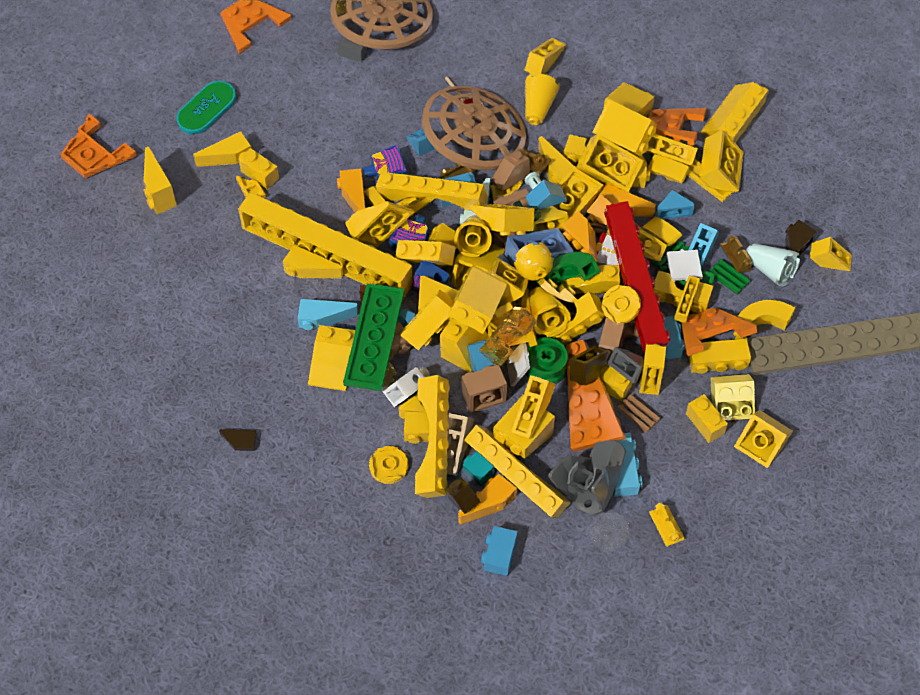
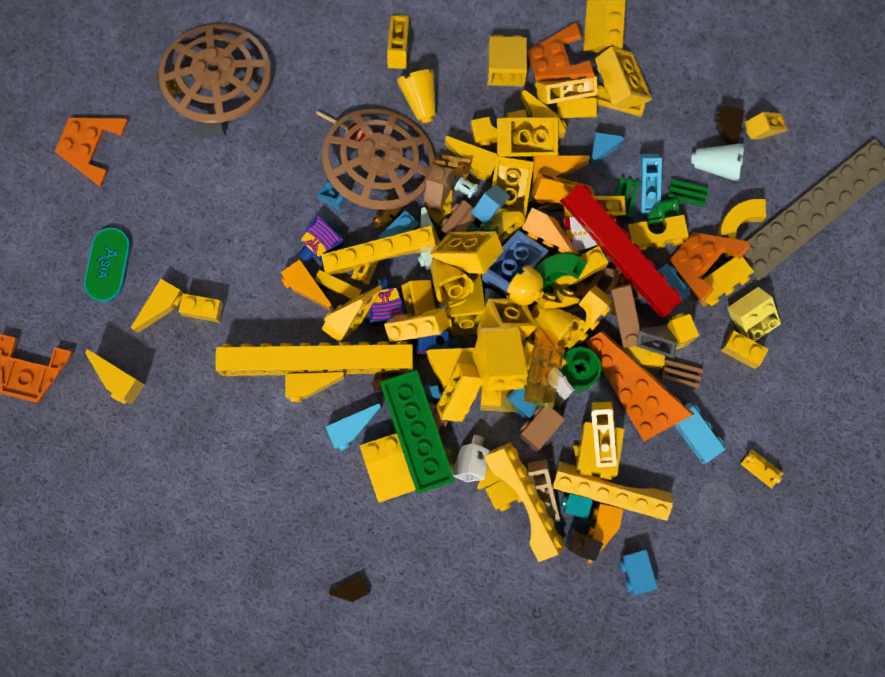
camera: 30 degrees left, 20 degrees up
(250, 186) = (206, 331): yellow tile -> none
(386, 470) = (496, 542): yellow tile -> none
(588, 365) = (624, 359): dark brown slope -> none
(590, 478) = (683, 449): dark grey piece -> none
(621, 304) = (624, 287): yellow tile -> none
(625, 128) = (528, 95): yellow slope -> none
(662, 231) = (608, 179): yellow slope -> none
(683, 264) = (648, 207): white piece -> none
(687, 299) = (670, 242): yellow piece -> none
(739, 259) = (689, 172): pearl gold hinge -> none
(763, 438) = (801, 342): yellow slope -> none

